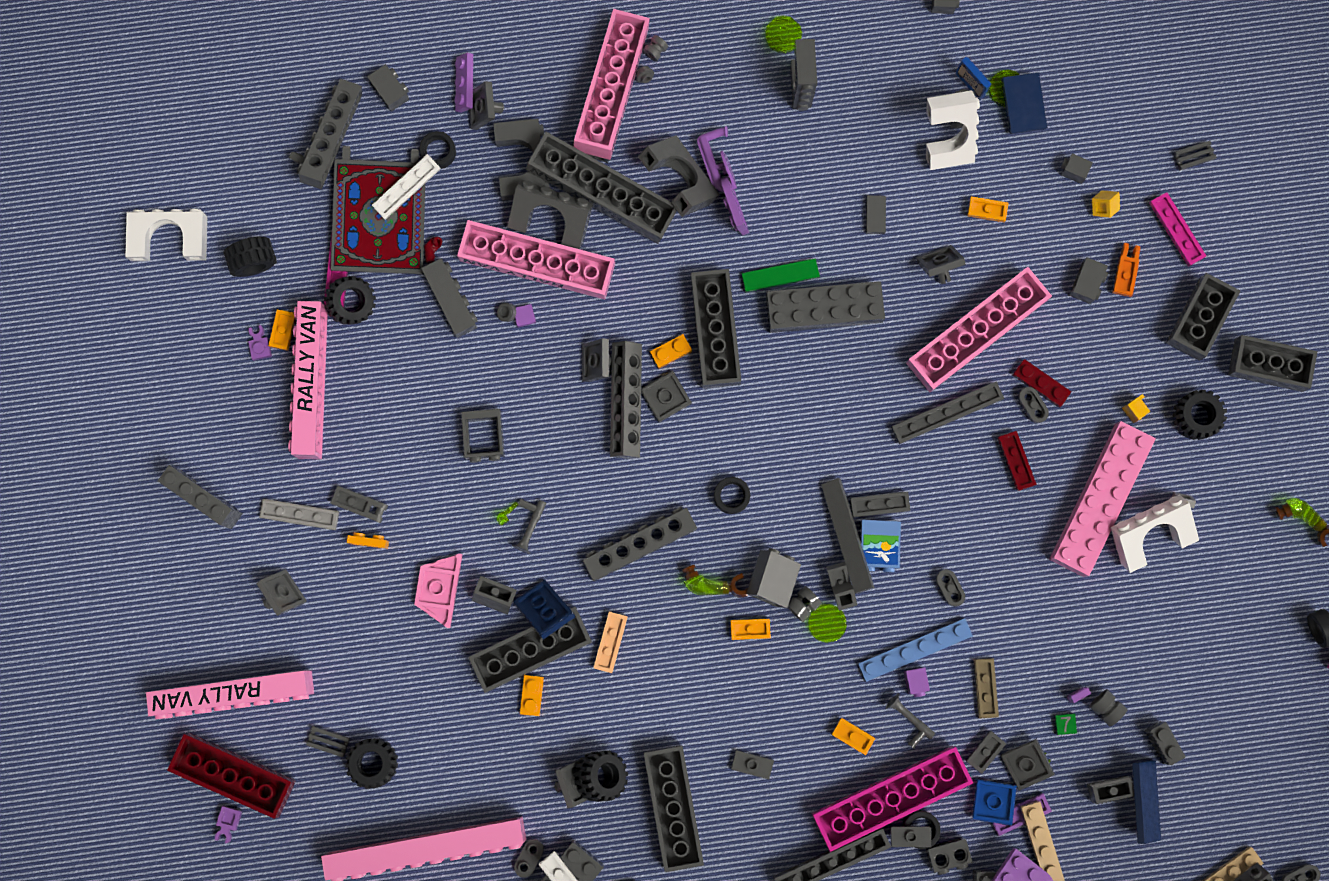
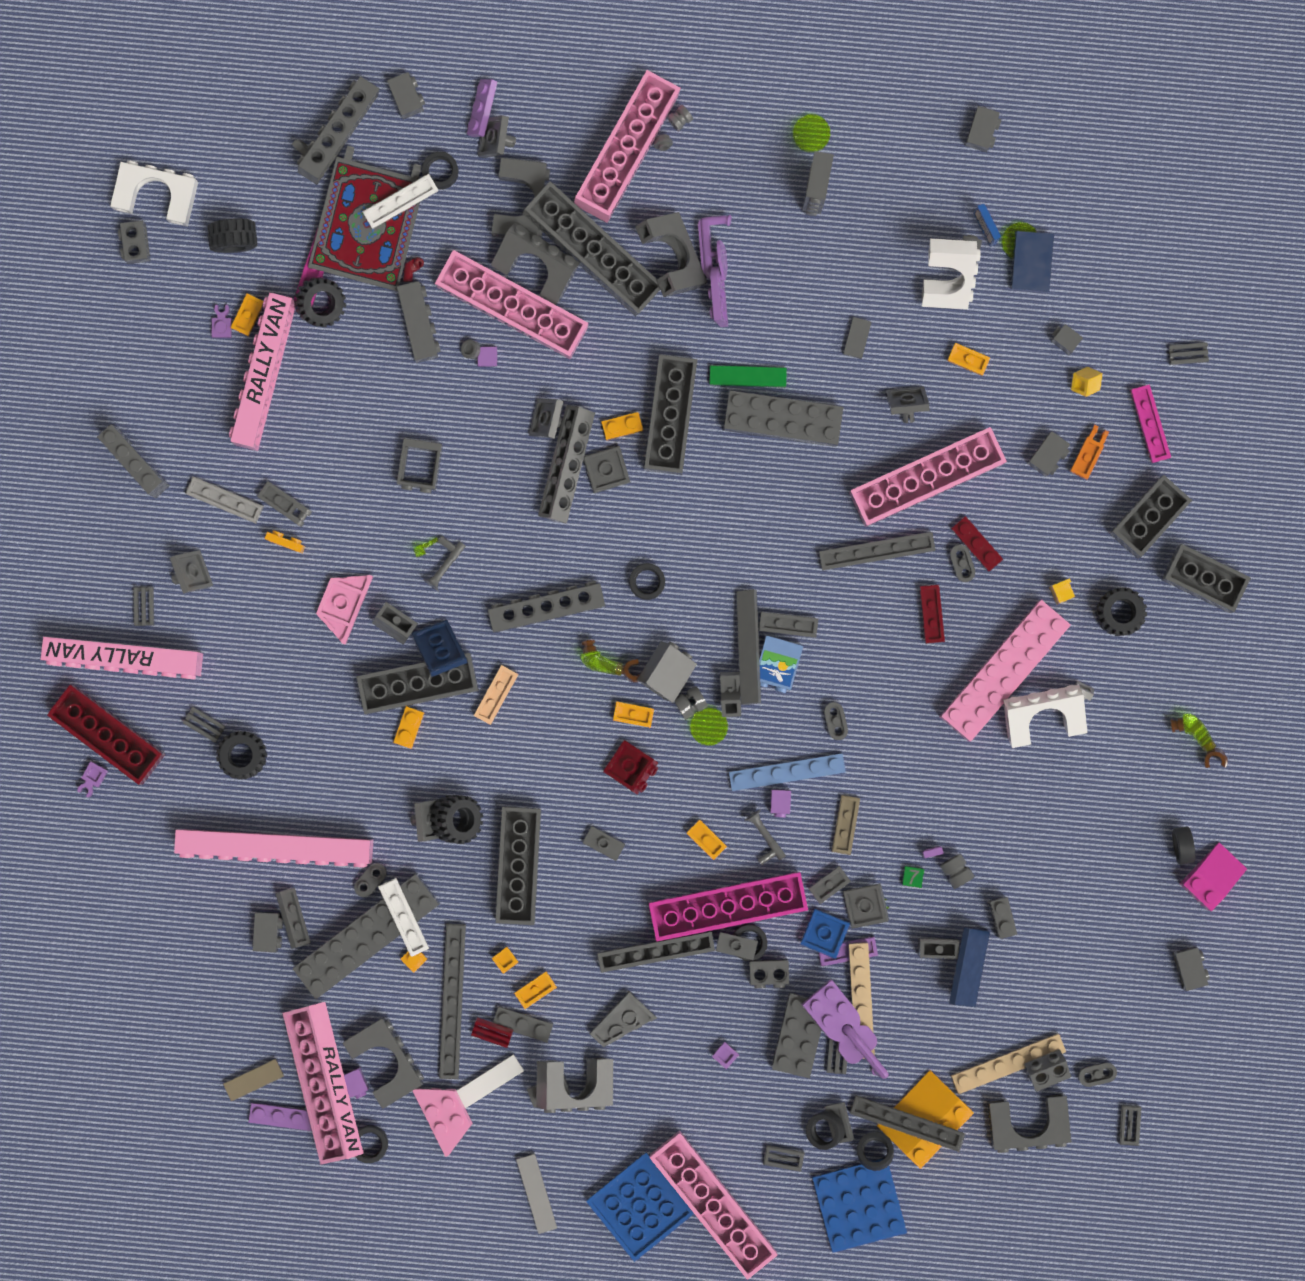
camera: 10 degrees right, 5 degrees up
(161, 284) = (139, 241): none -> dark grey brick
(235, 640) = (143, 590): none -> dark grey tile
(761, 682) = (631, 767): none -> dark red plate

